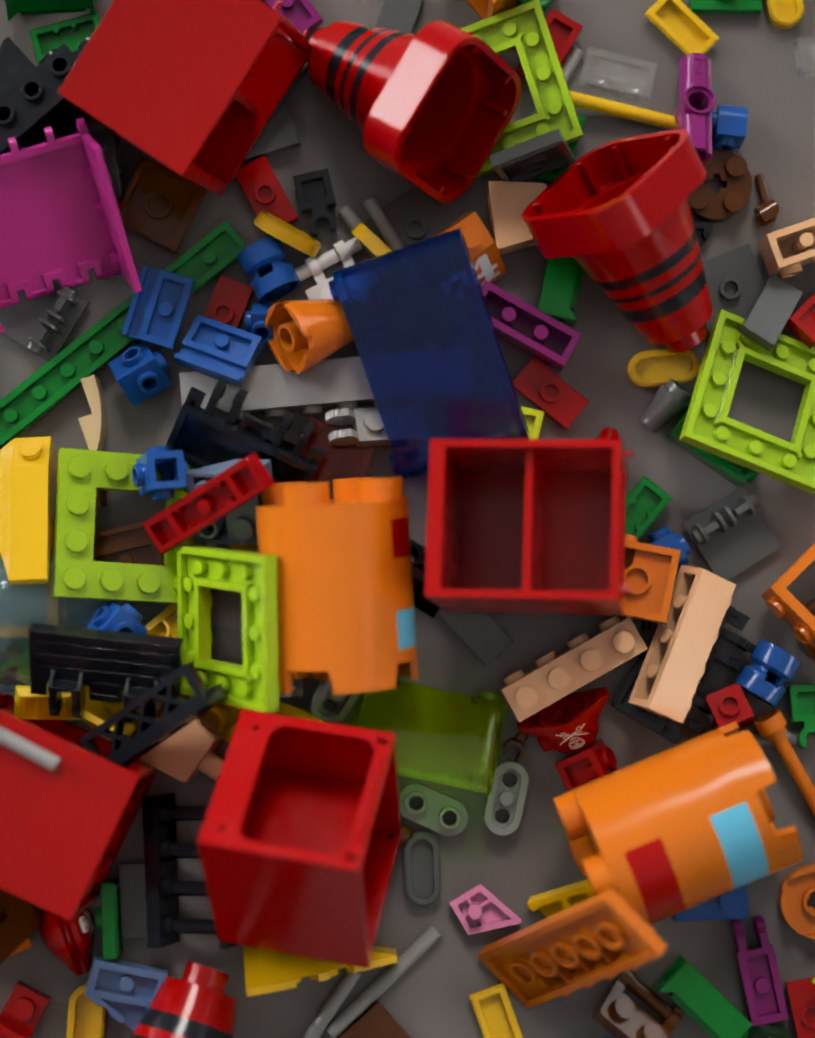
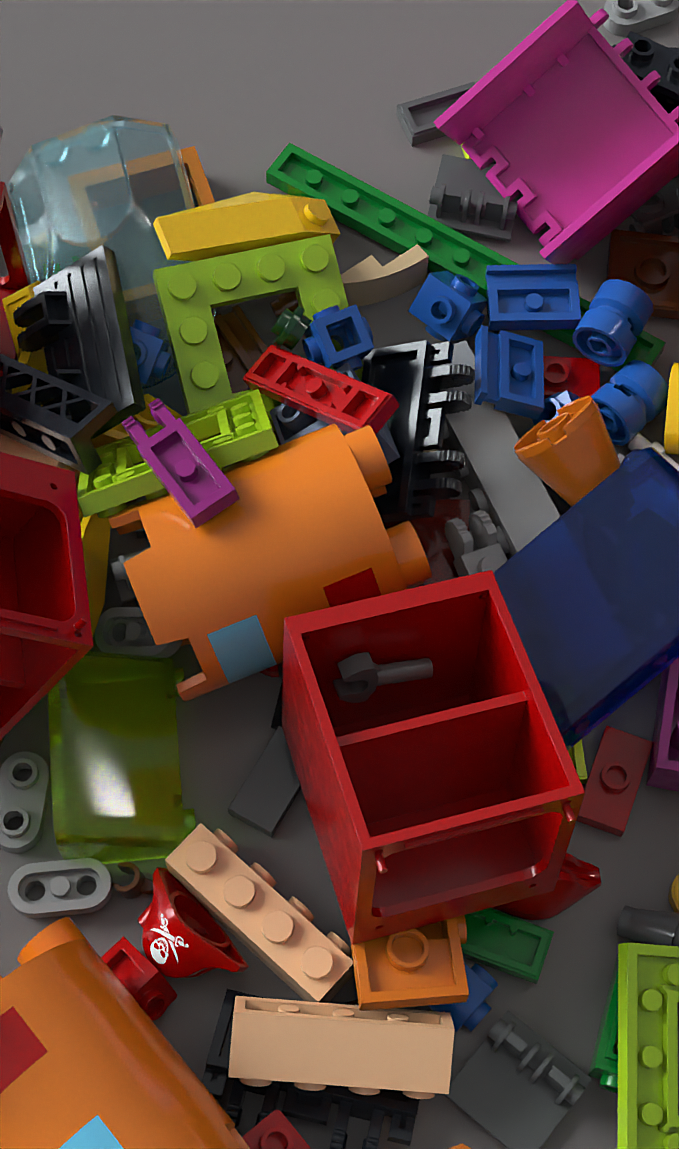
camera: 75 degrees right, 20 degrees down
(138, 505) = (290, 327): none -> dark green plate
(201, 252) = (613, 322): none -> blue wheel
(276, 631) = (182, 466): none -> magenta hinge
(462, 550) = (362, 675): none -> dark grey bar

